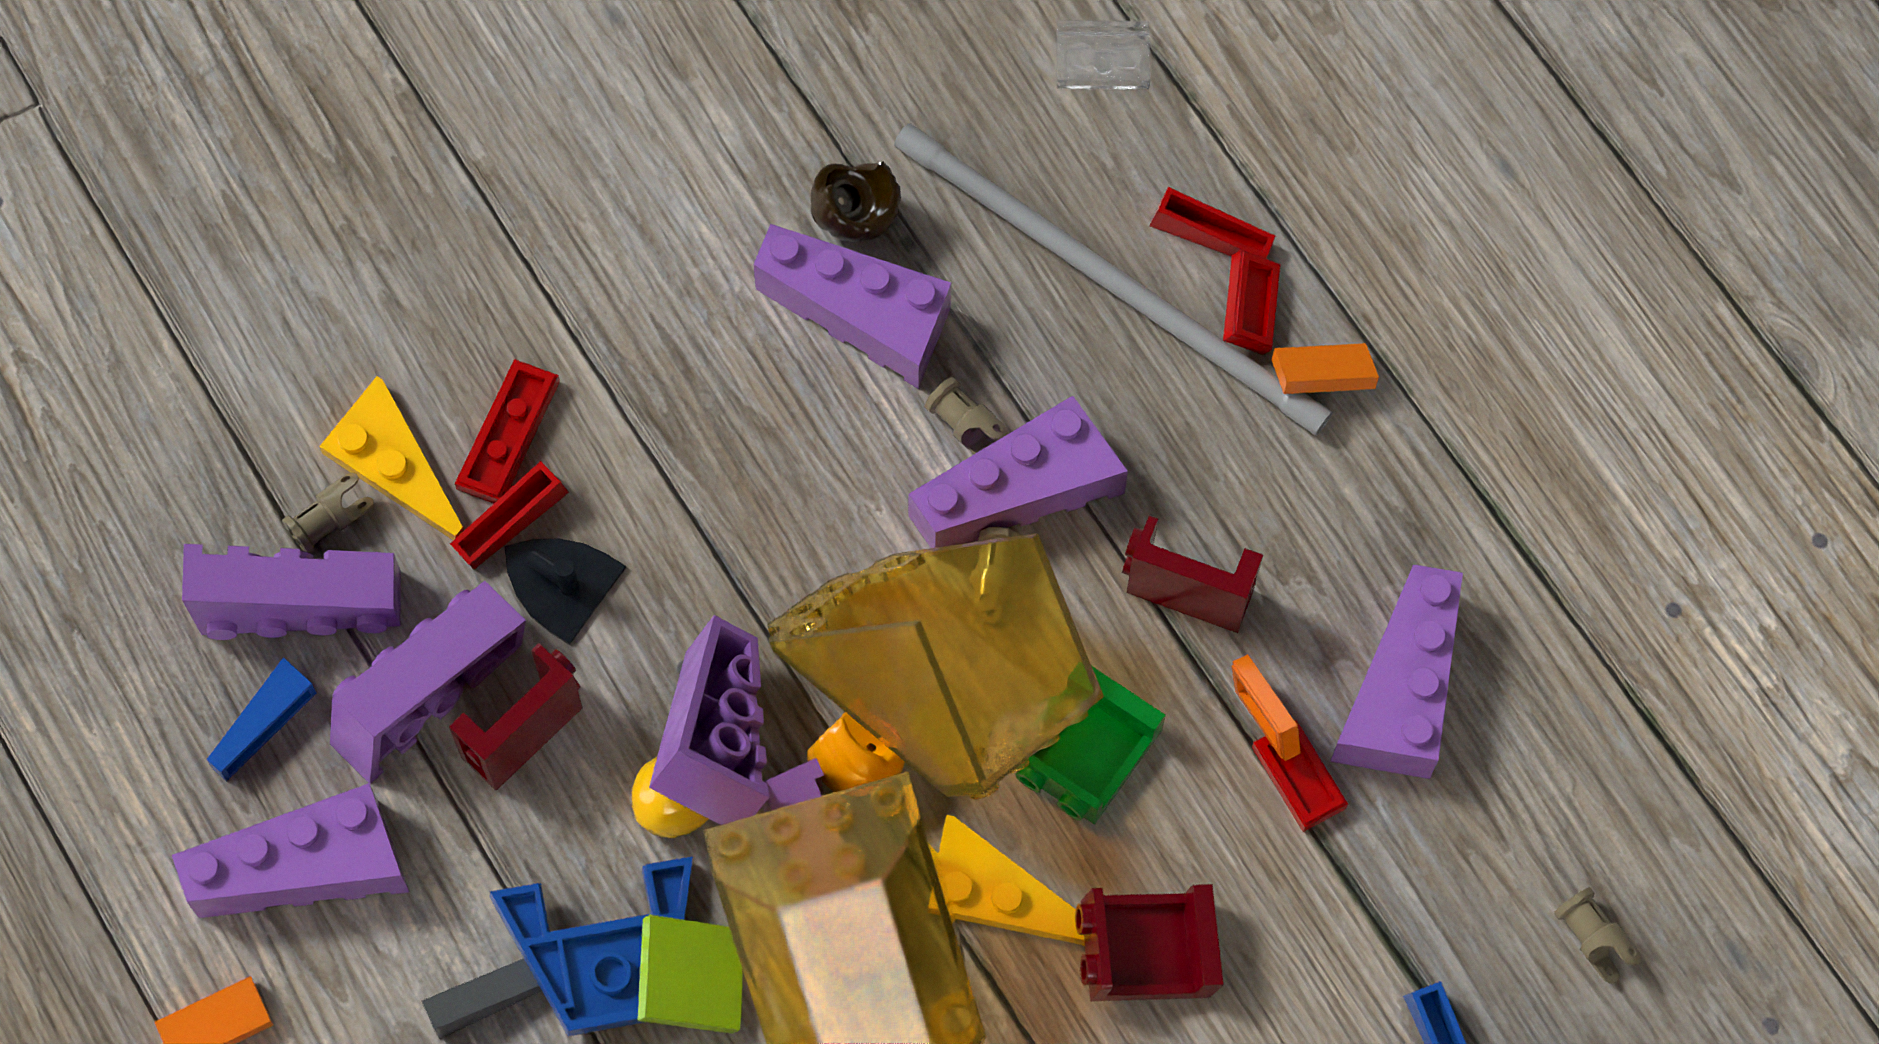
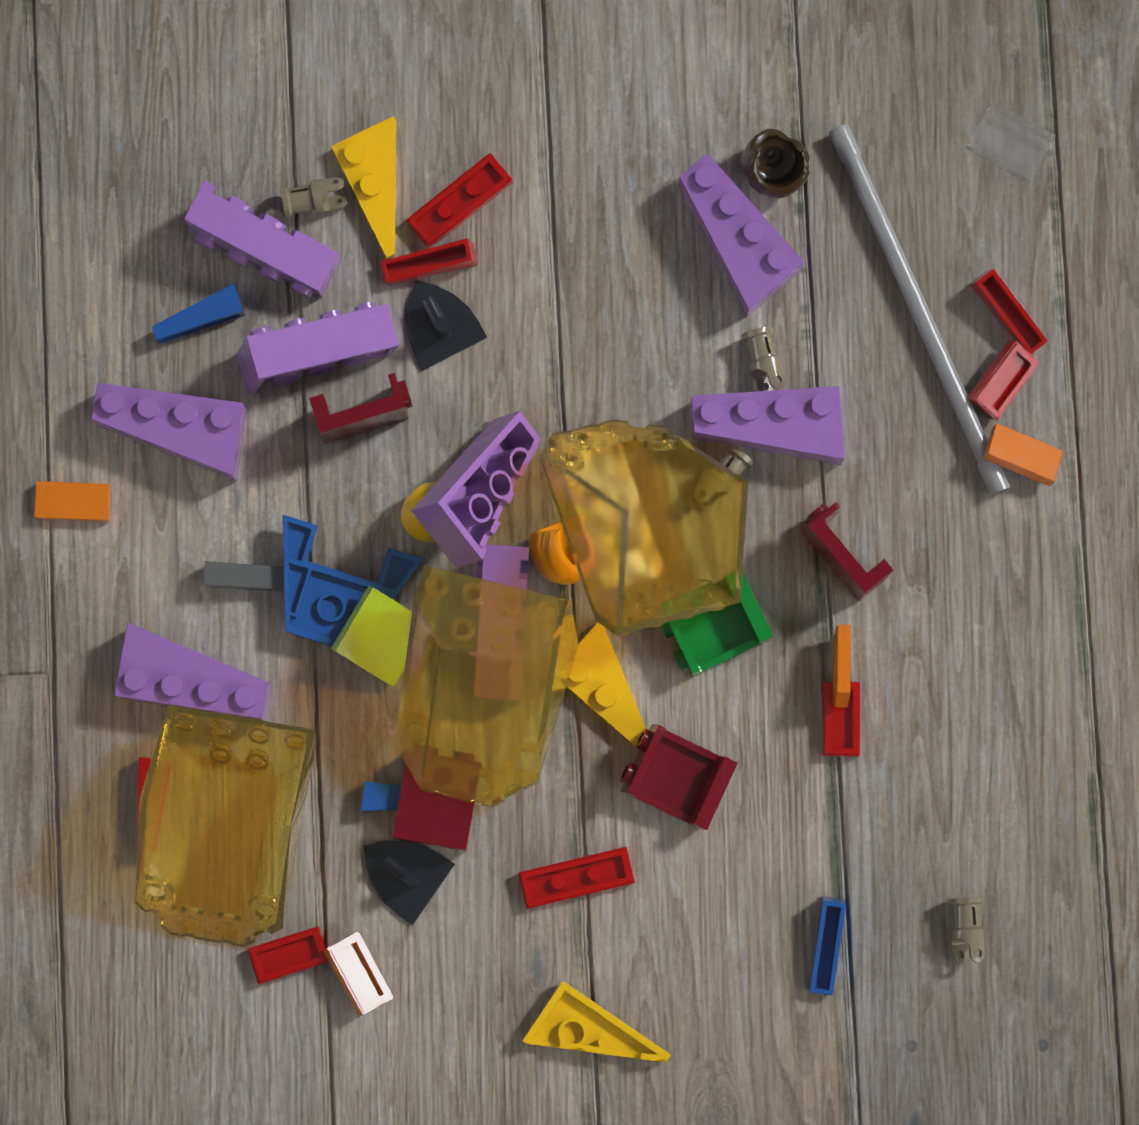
camera: 30 degrees right, 15 degrees up
(1404, 693) = (940, 703): medium lavender wedge -> none

